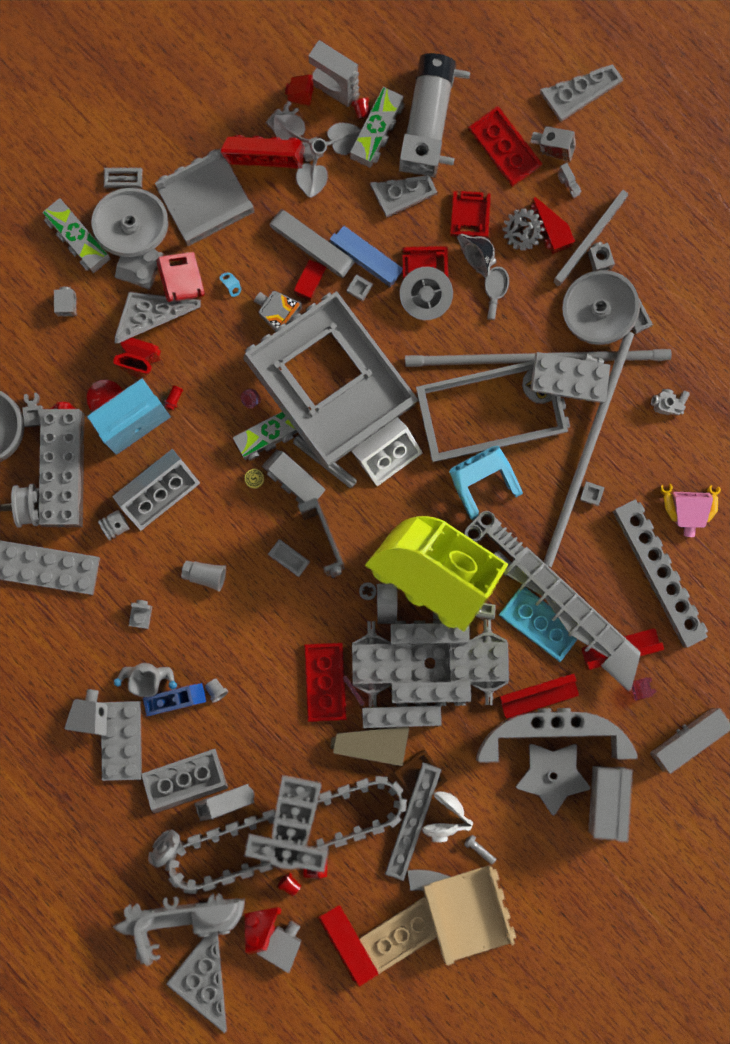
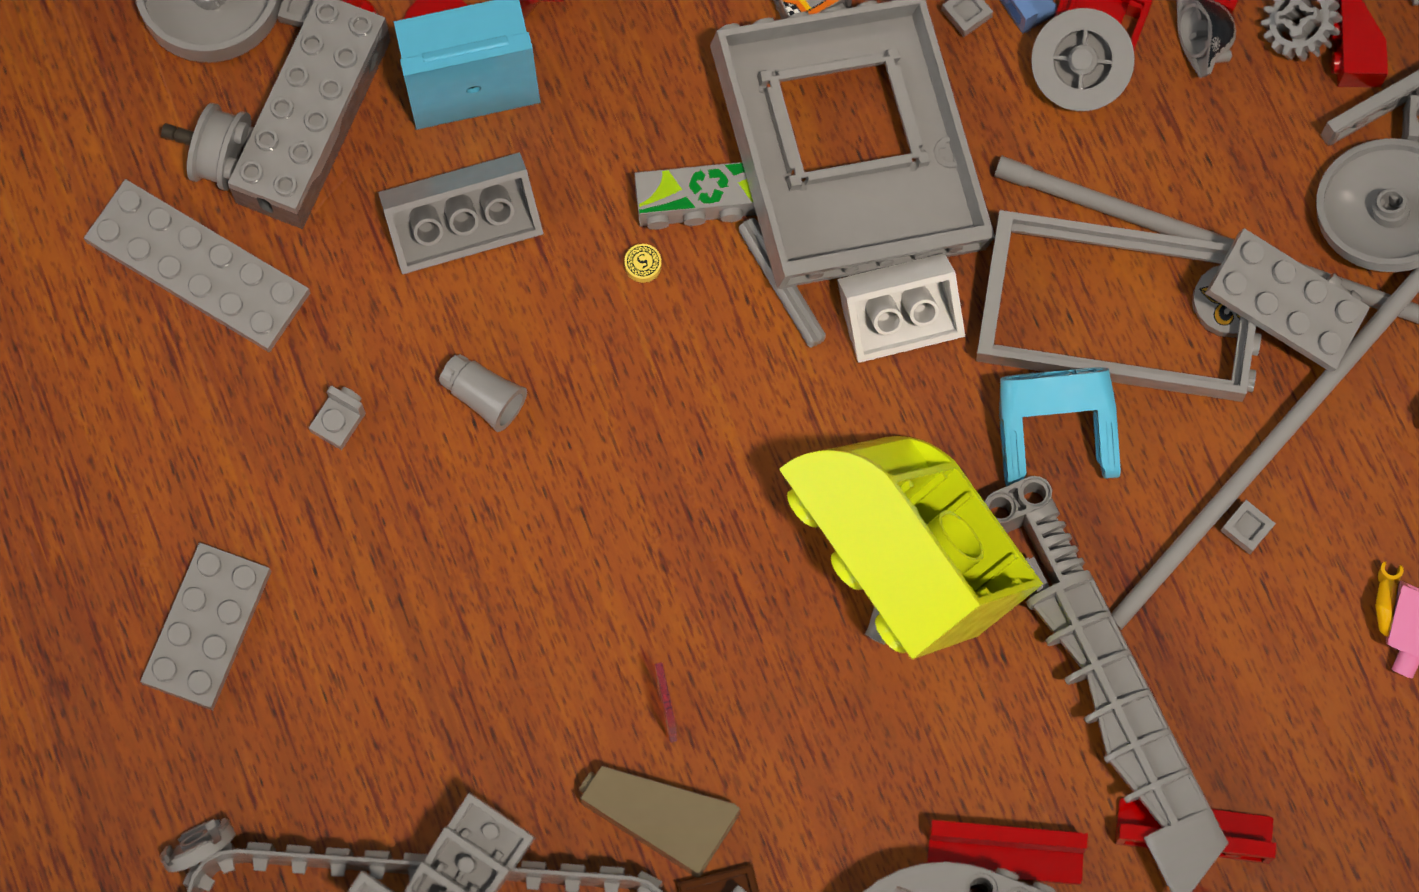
camera: 20 degrees right, 10 degrees down
(88, 715) = (166, 553): light grey torso -> none
(114, 524) = (350, 242): light grey piece -> none
(145, 679) = (297, 531): light grey piece -> none
(173, 398) = (558, 70): red pin -> none
(174, 699) = (334, 589): blue slope -> none
(184, 781) = (287, 744): light grey slope -> none
(216, 690) = (415, 604): light grey piece -> none
(224, 802) = (343, 809): light grey slope -> none
(250, 398) = (694, 122): clear pink tile -> none
(289, 558) = (646, 425): light grey tile -> none
(292, 477) = (713, 287): light grey wedge -> none
(310, 509) = (722, 353): dark grey panel -> none
(325, 682) = (619, 670): red tile -> none
(369, 585) = (773, 531): light grey bush -> none
(386, 603) = (791, 567): light grey slope -> none
(402, 716) = (726, 780): light grey brick -> none
(458, 664) = (771, 696): light grey piece -> none
(487, 611) = (966, 660): light grey slope -> none
(496, 287) = (1212, 103): light grey piece -> none
(537, 623) = (1054, 722): medium azure tile -> none
(698, 631) = (1327, 854): light grey brick -> none

